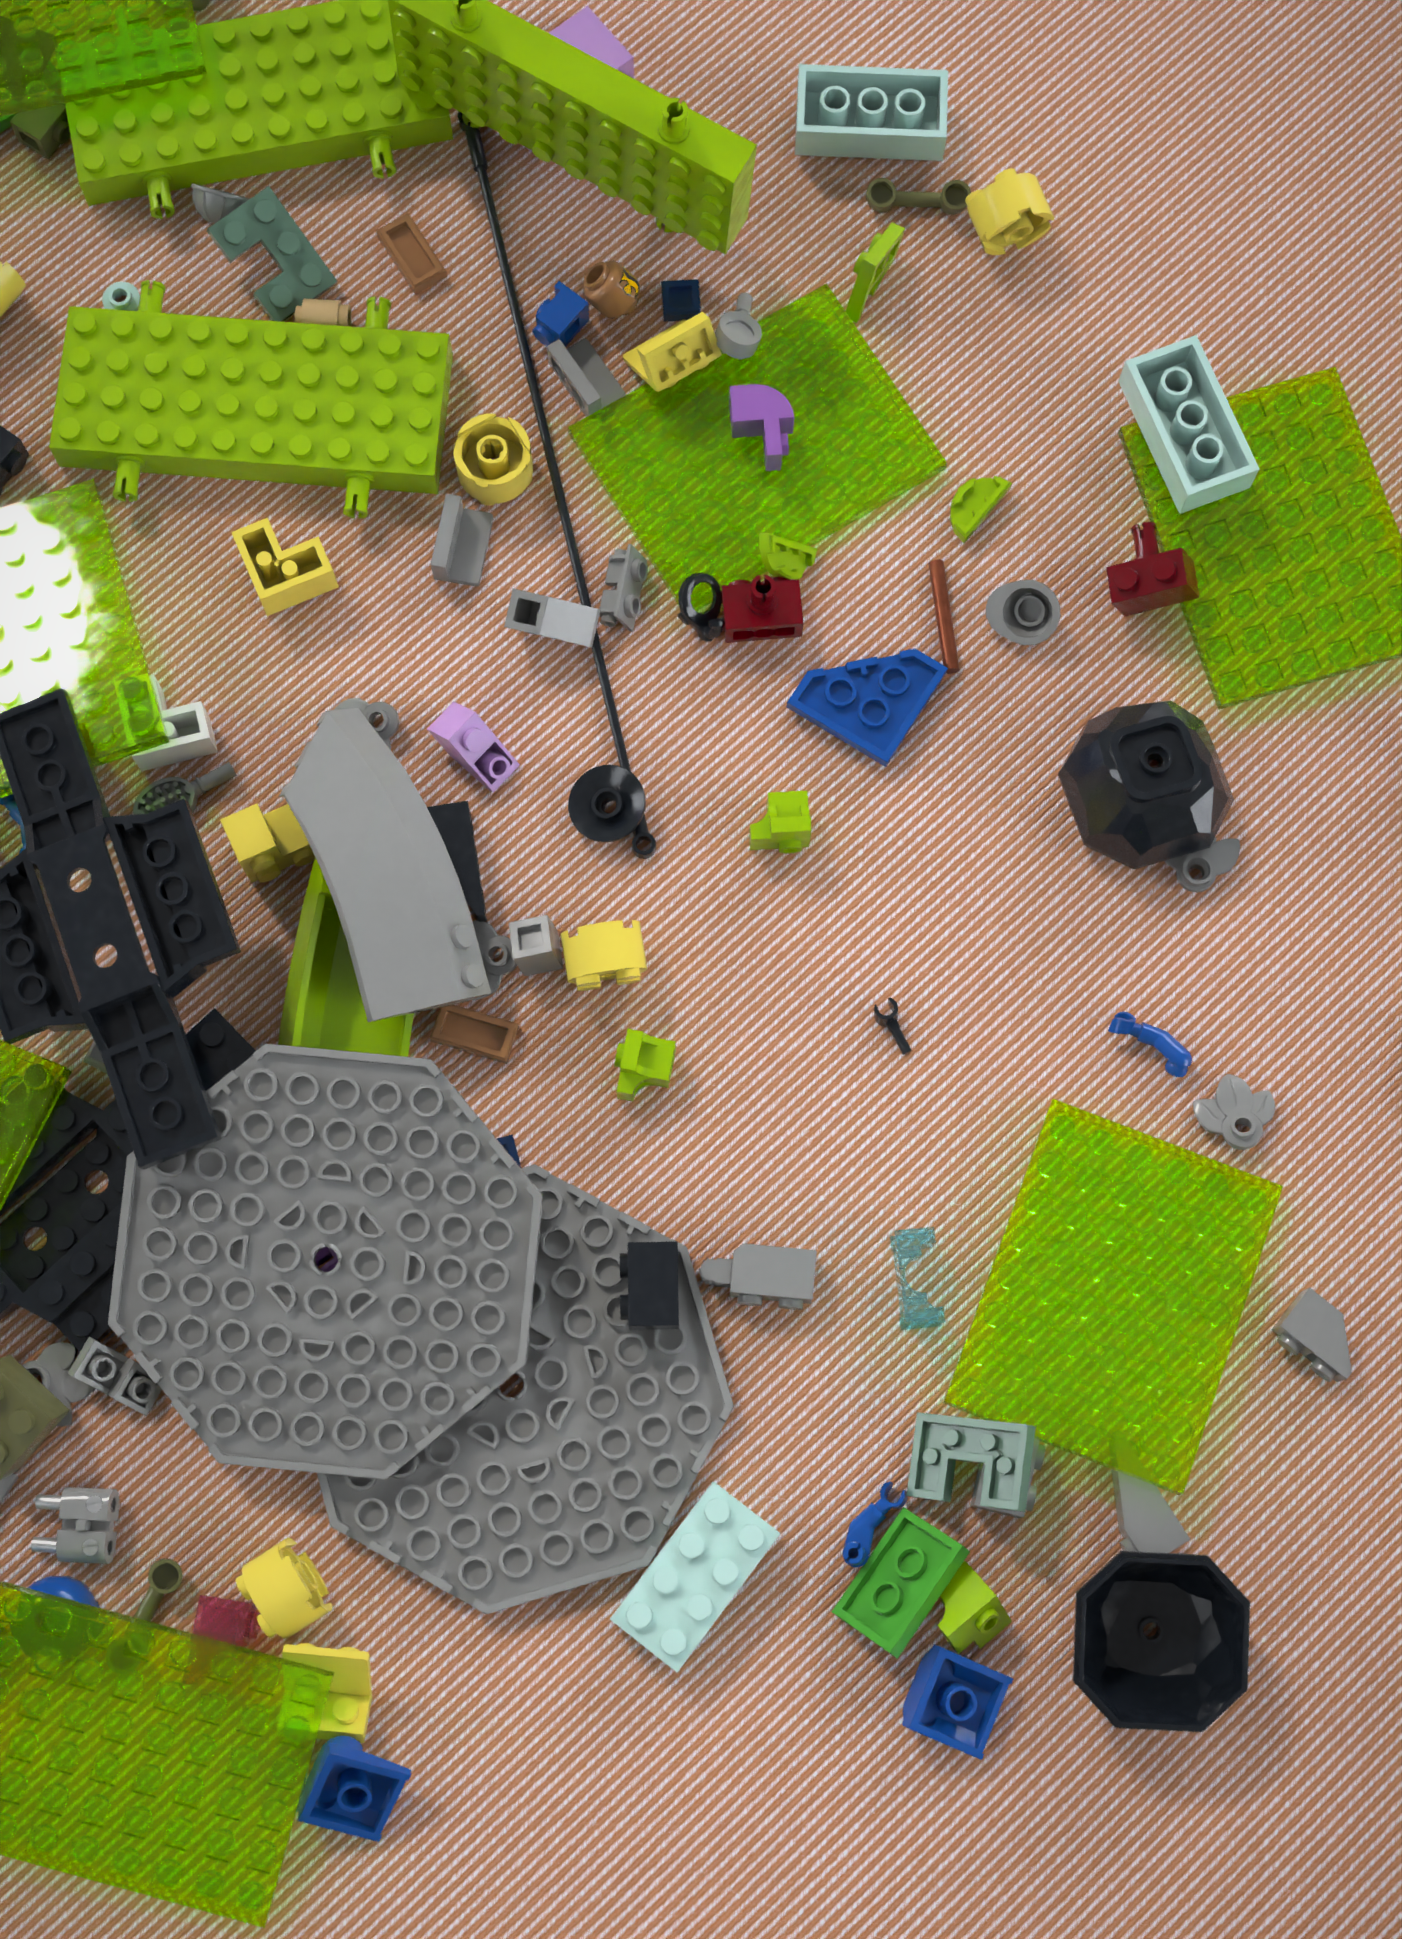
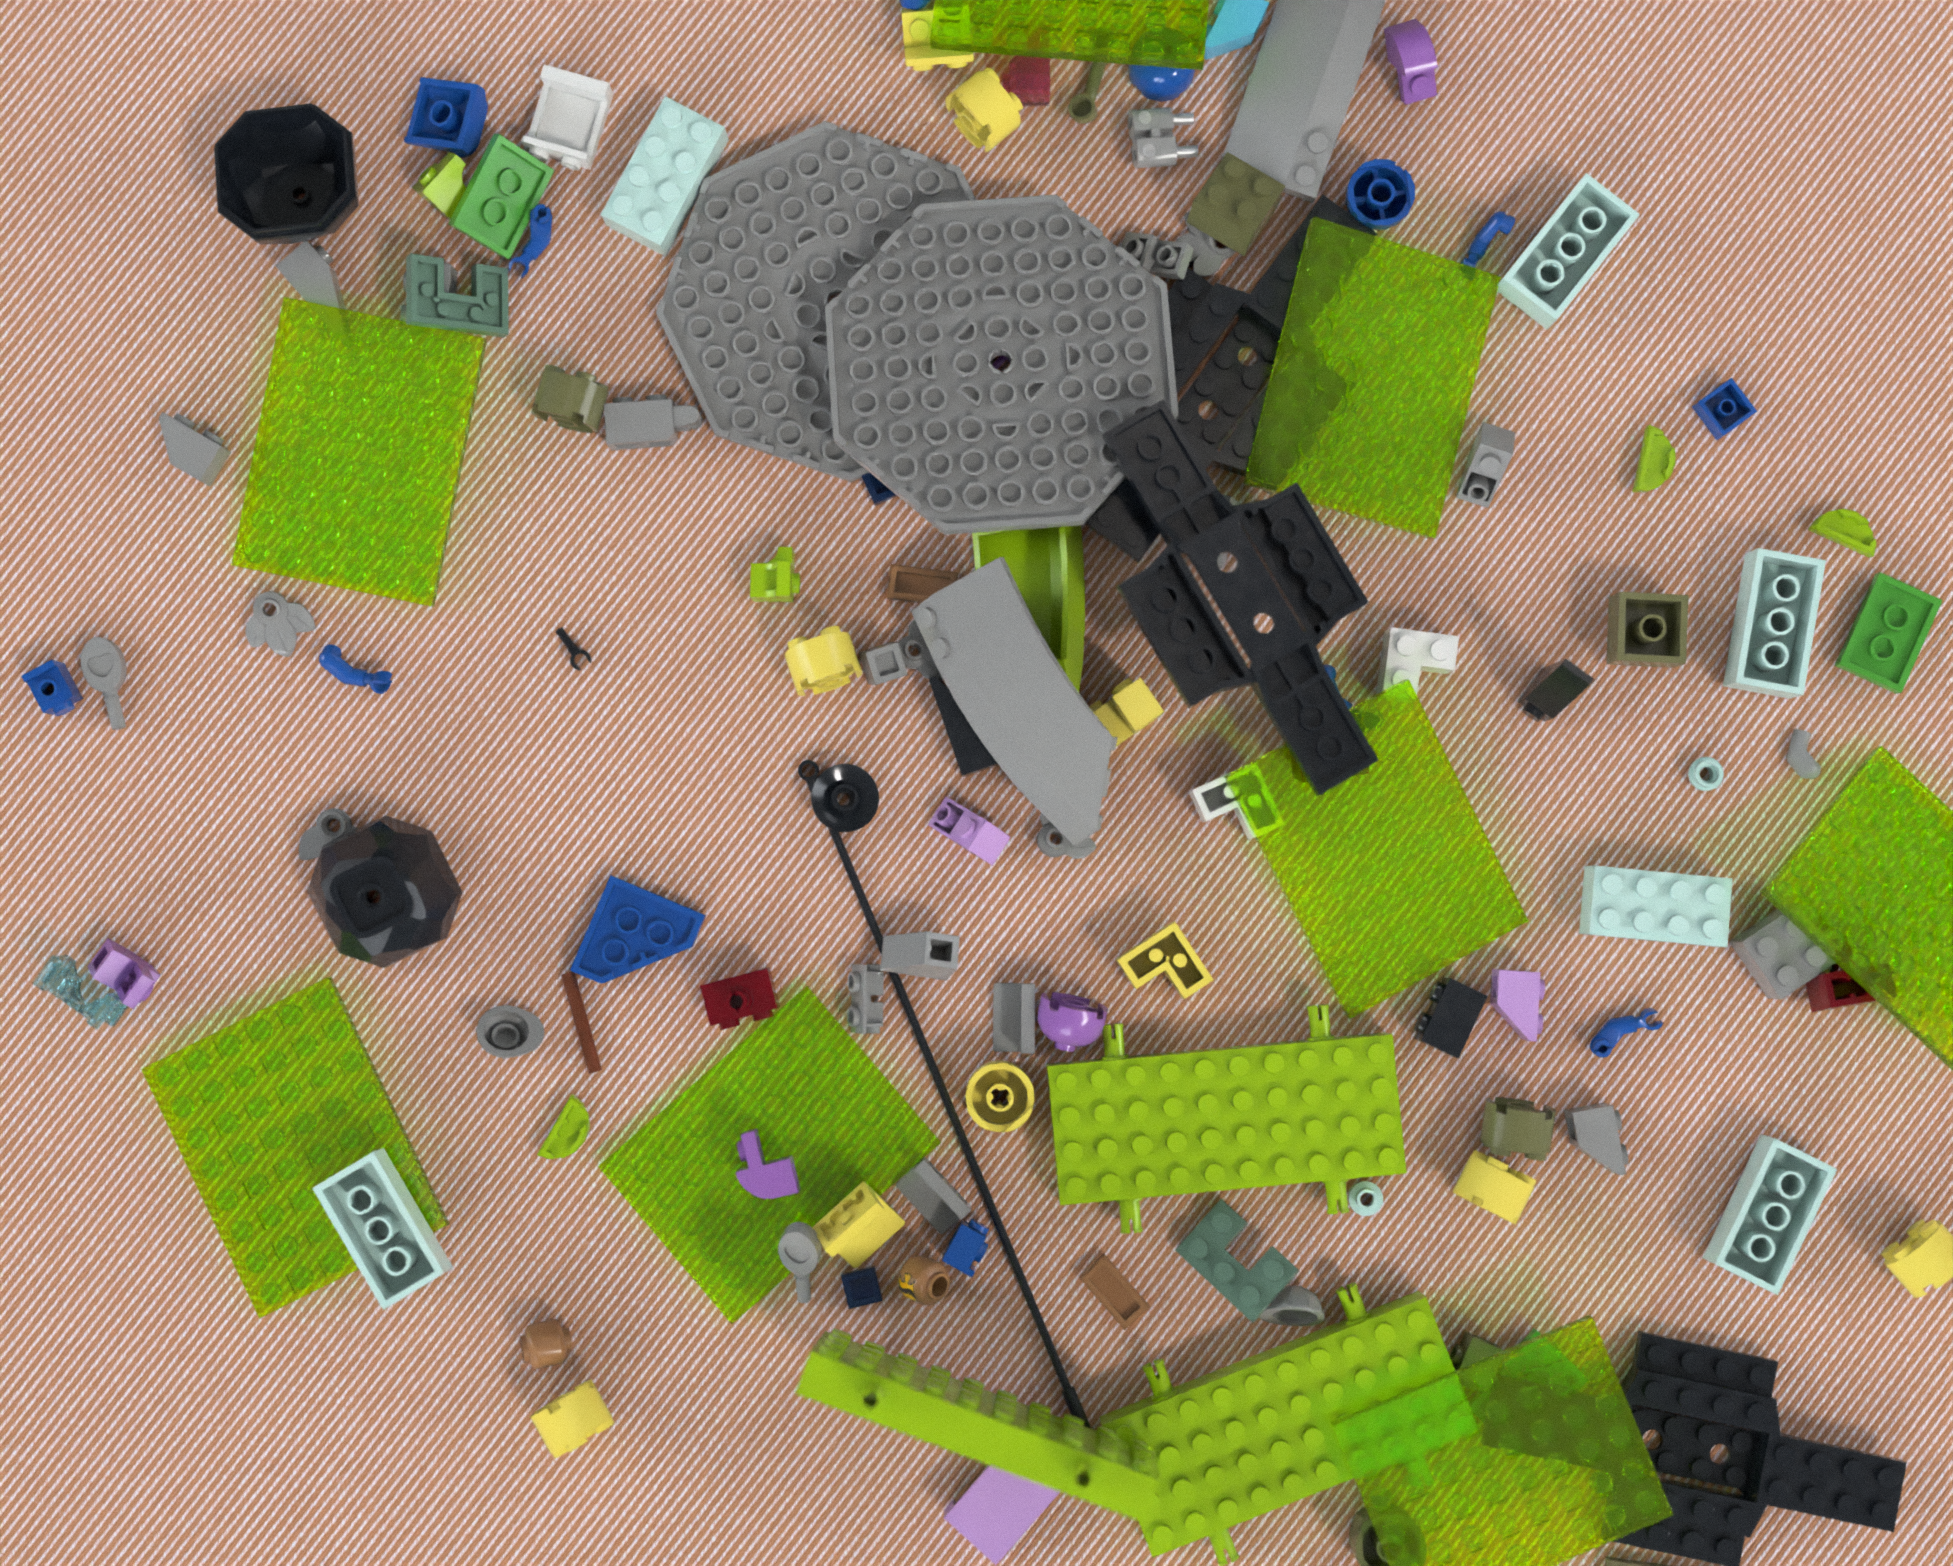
camera: 170 degrees right, 10 degrees up
(174, 789) = (1215, 743): light grey piece -> none
(323, 312) = (1179, 1210): tan brick -> none
(398, 524) = (1070, 1020): none -> medium lavender cylinder
(652, 1286) = (735, 392): black brick -> none
(704, 623) = (791, 979): black piece -> none
(784, 556) = (725, 1047): lime plate -> none
(785, 824) = (690, 806): lime brick -> none
(805, 1674) = (568, 118): none -> white panel
(853, 1309) = (570, 400): none -> olive brick
(871, 112) = (714, 1501): light aqua brick -> none
(872, 268) = (691, 1341): lime wing -> none
(882, 196) = (628, 1430): olive bar -> none
(914, 1307) = (532, 460): clear light blue piece -> none
(1029, 293) = (545, 1344): none -> medium nougat head
(1153, 577) = (401, 1082): dark red brick -> none

